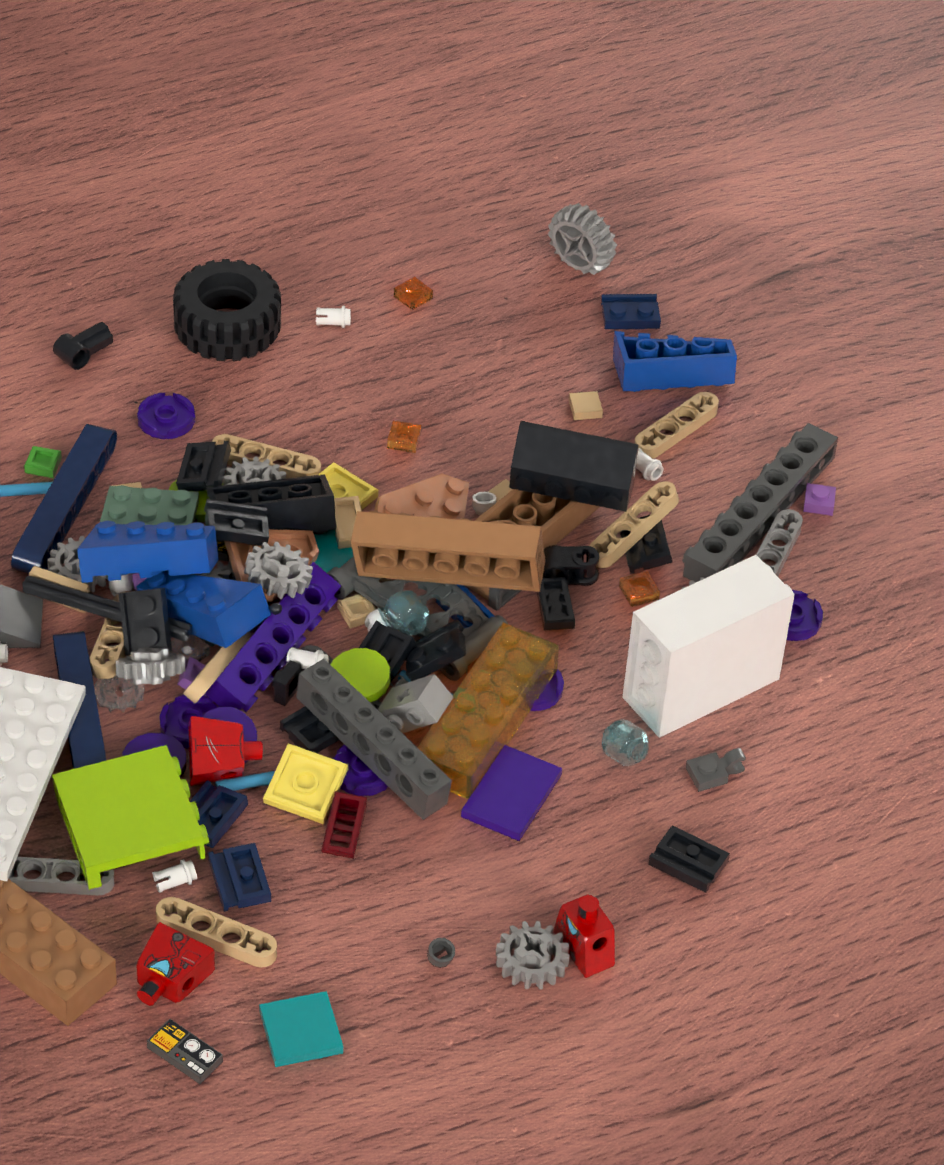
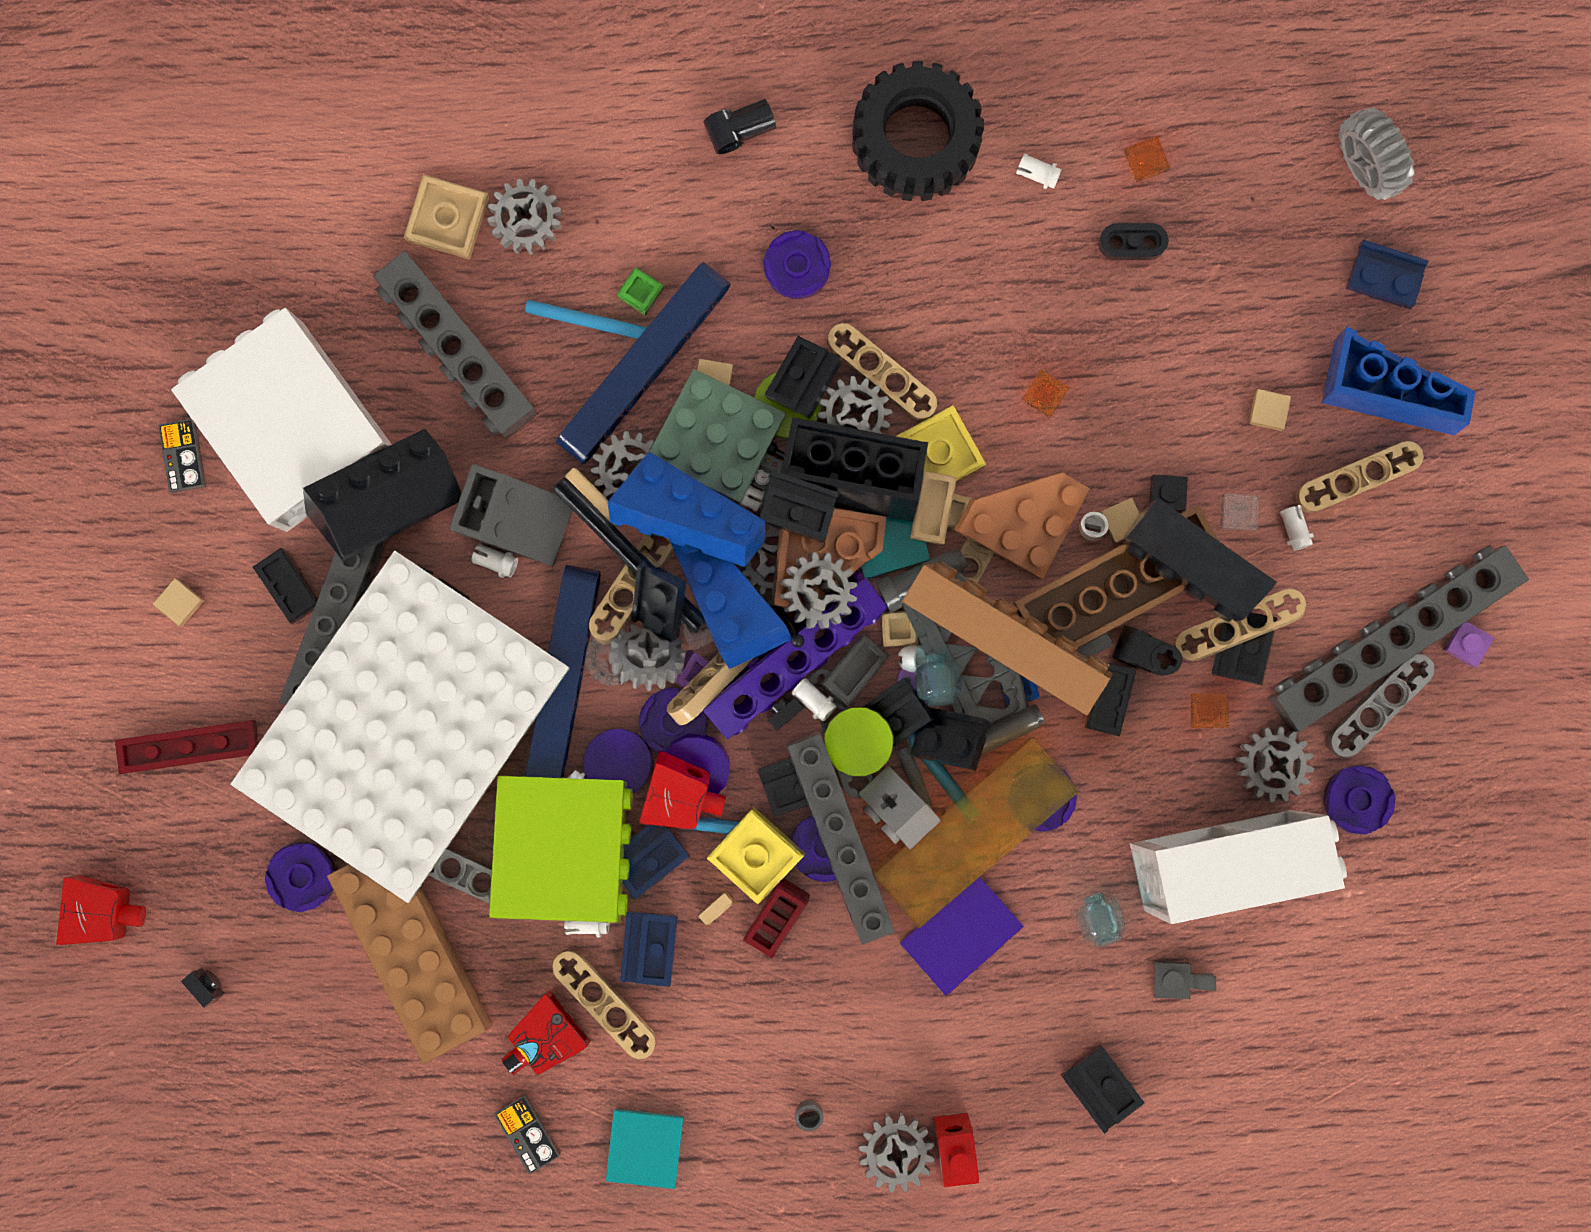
camera: 25 degrees right, 40 degrees up
(287, 828) = (716, 908): none -> tan tile
(333, 637) = (854, 670): none -> dark grey tile
(427, 336) = (1132, 241): none -> black plate

